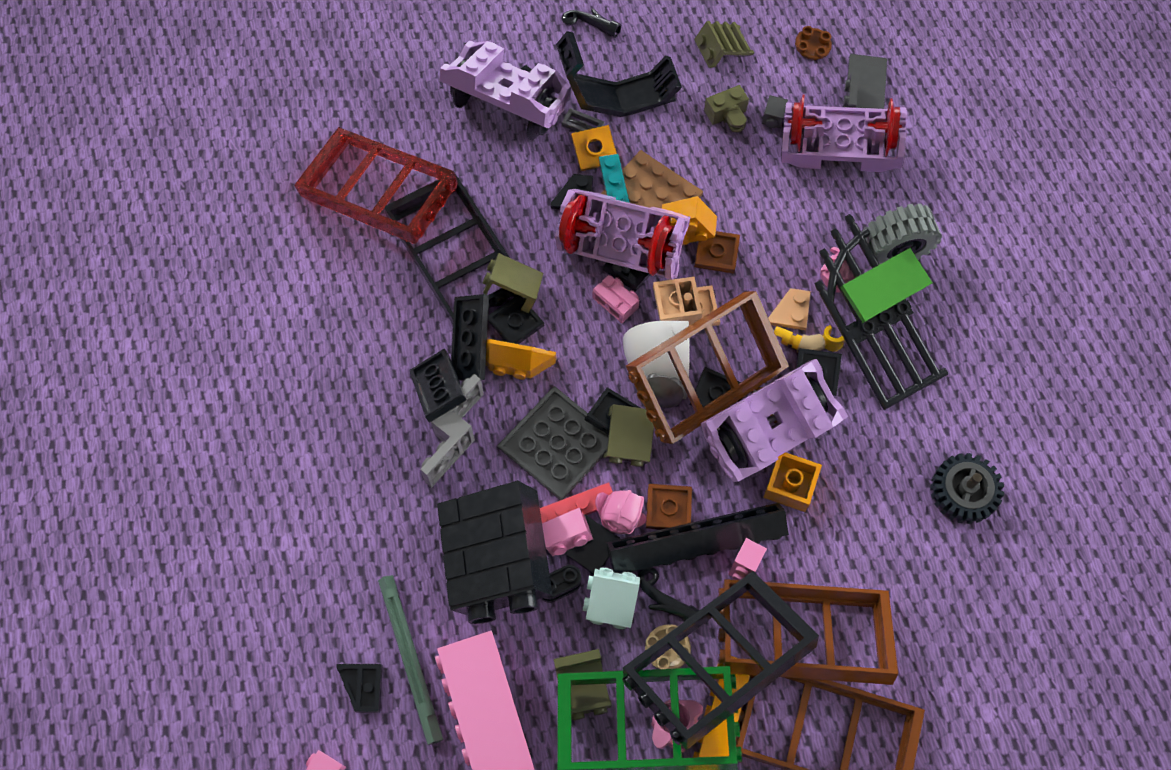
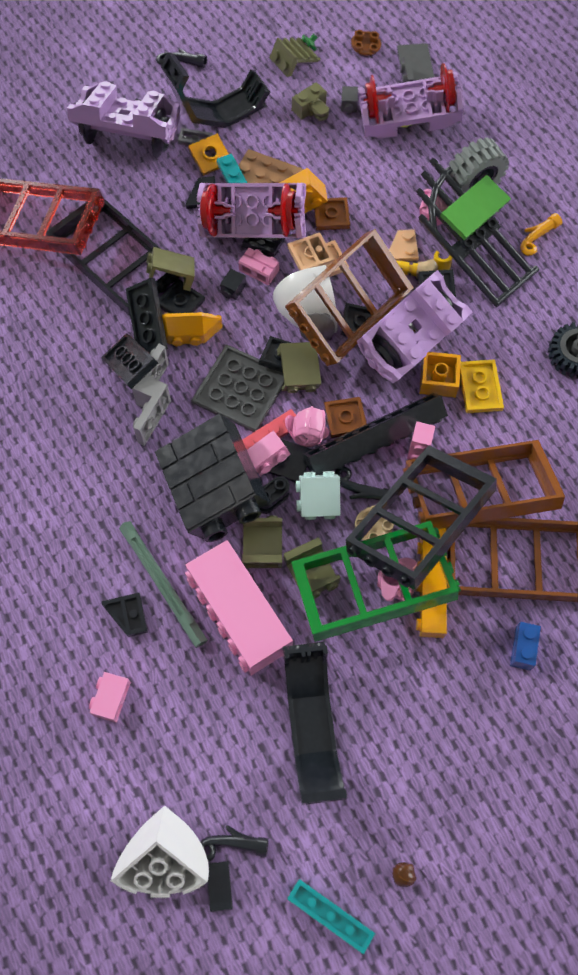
camera: 15 degrees left, 0 degrees up
(535, 639) = (262, 543): none -> olive panel
(579, 315) = (233, 284): none -> black brick
(746, 30) = (310, 41): none -> green plant
(838, 506) = (481, 386): none -> yellow plate
(979, 317) = (537, 231): none -> light orange plant

